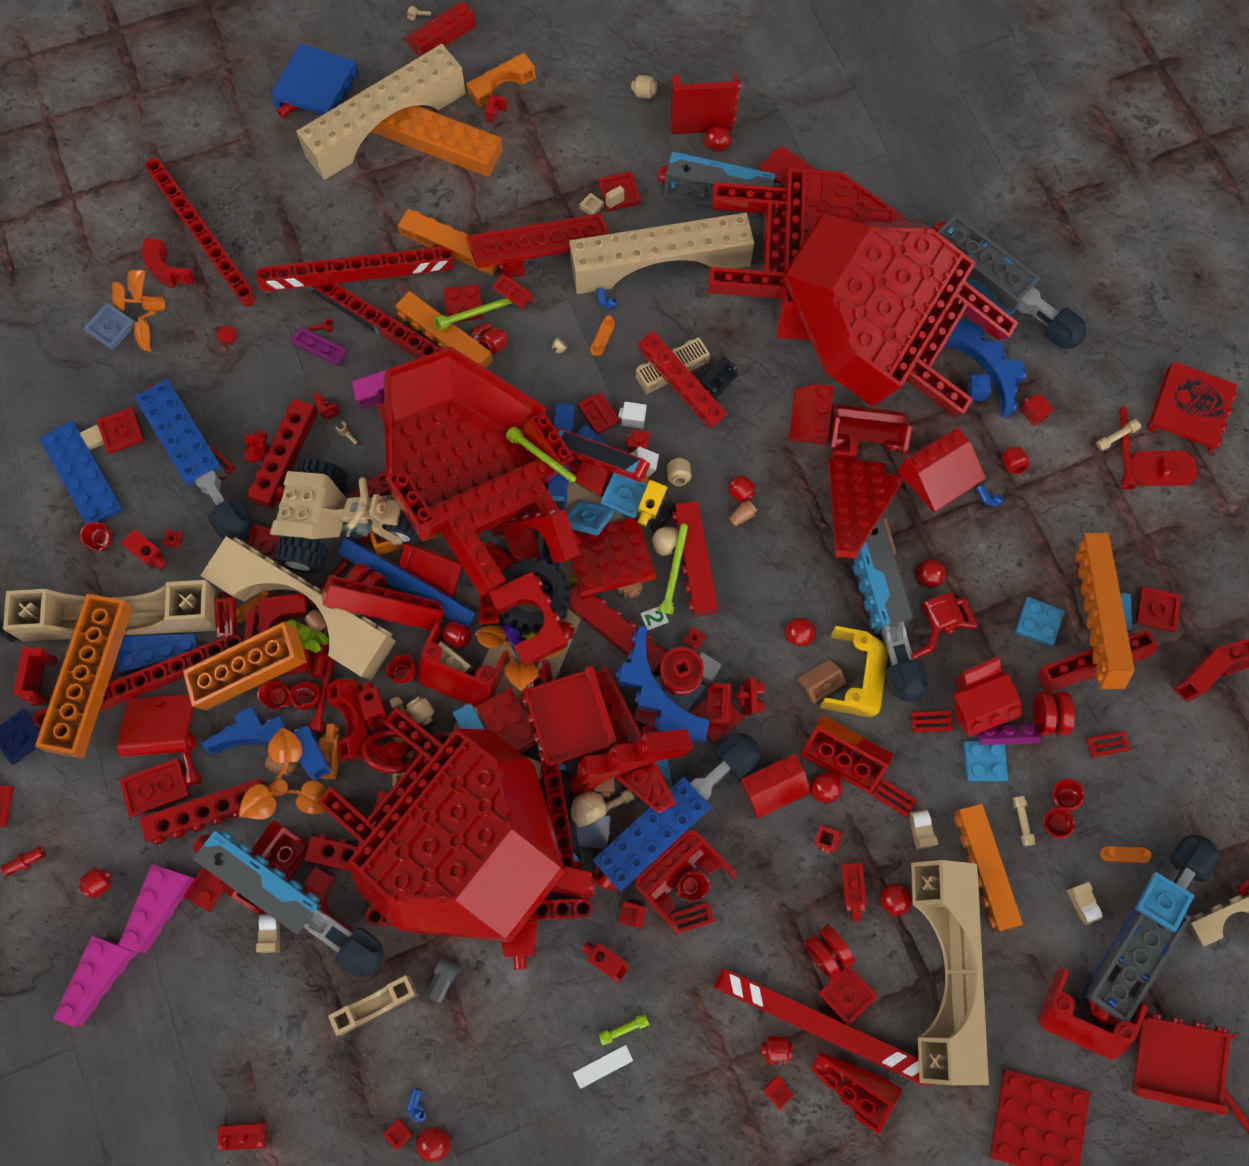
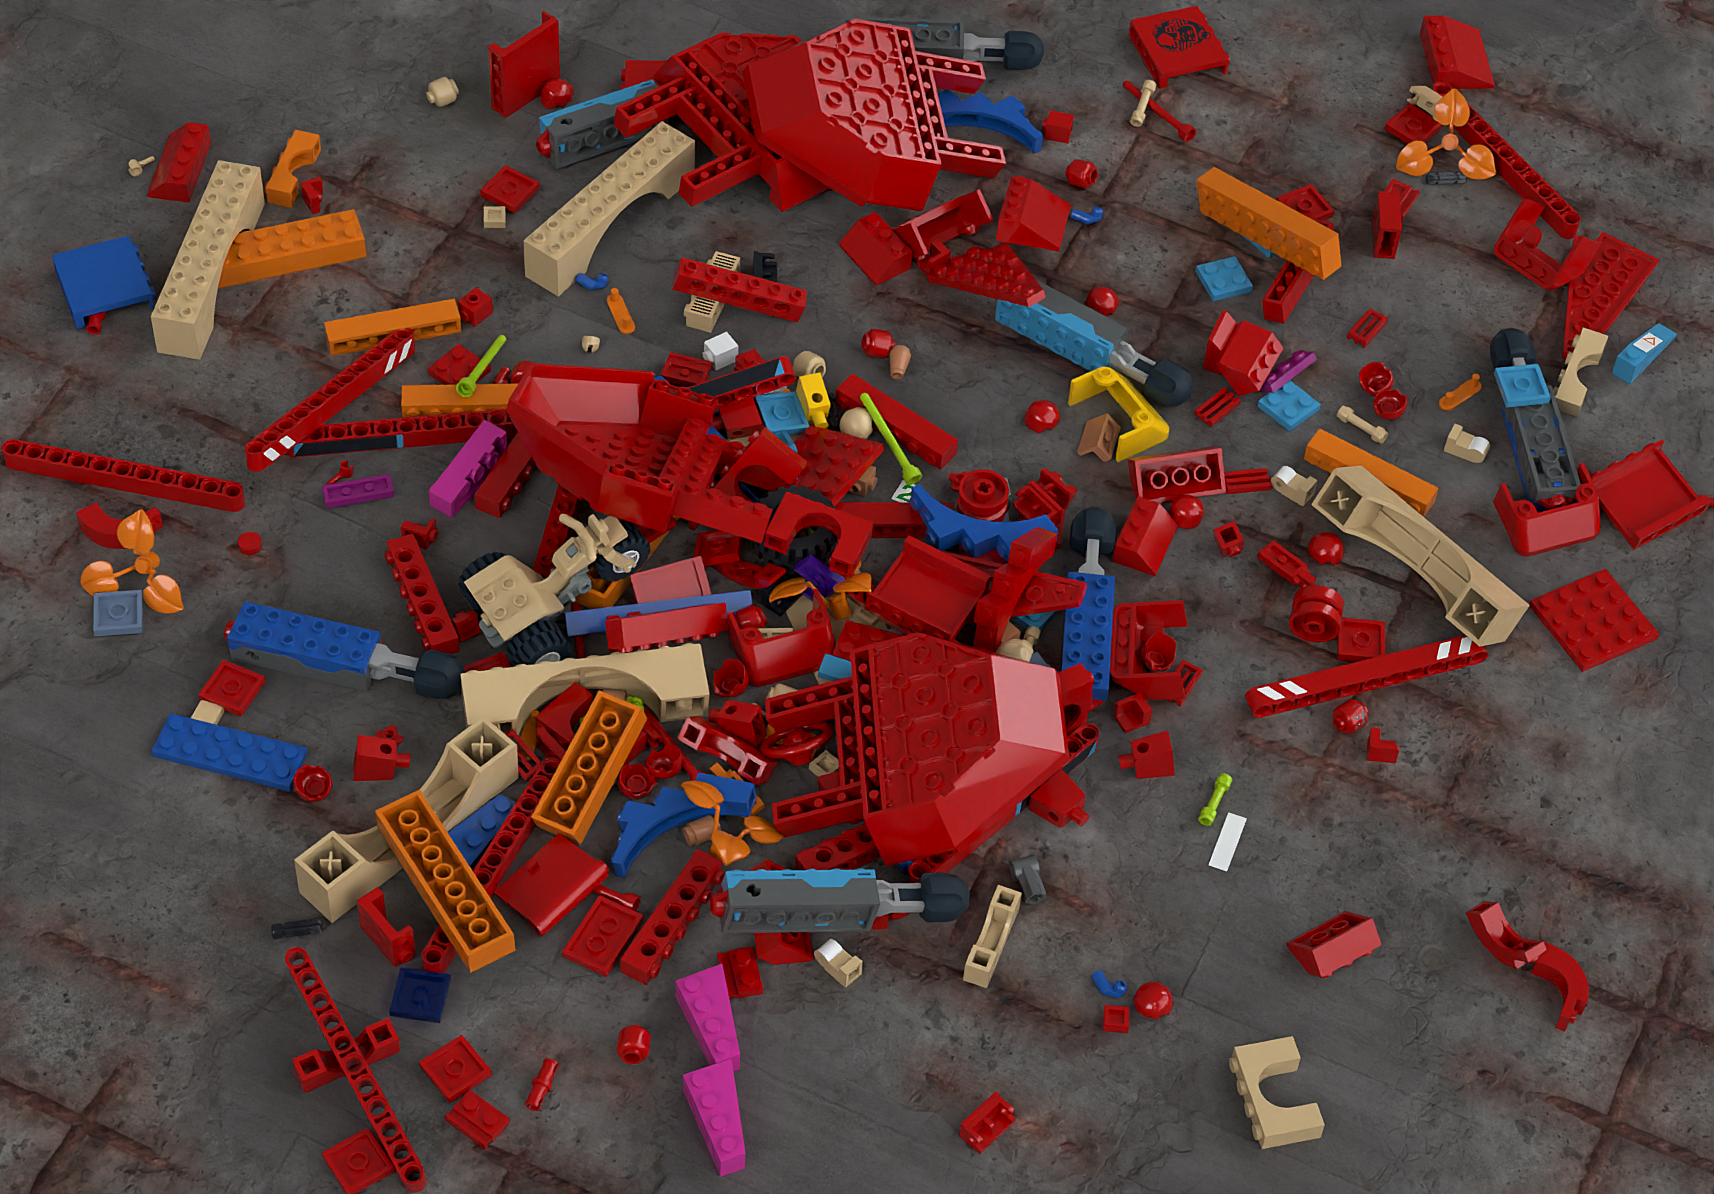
camera: 45 degrees left, 20 degrees down
(256, 446) = (394, 603): red hips -> none
(345, 432) = (457, 542): tan hand -> none
(513, 291) = (500, 325): red hinge -> none
(515, 436) = (644, 420): lime piece -> none
(533, 240) = (479, 270): red plate -> none
(615, 197) = (517, 190): tan tile -> none
(865, 1092) = (1442, 696): red wedge -> none
(945, 616) = (1149, 321): red piece -> none
(978, 387) = (996, 135): blue brick -> none
(1054, 713) = (1305, 327): red wheel -> none
(1164, 468) = (1203, 105): red shield -> none

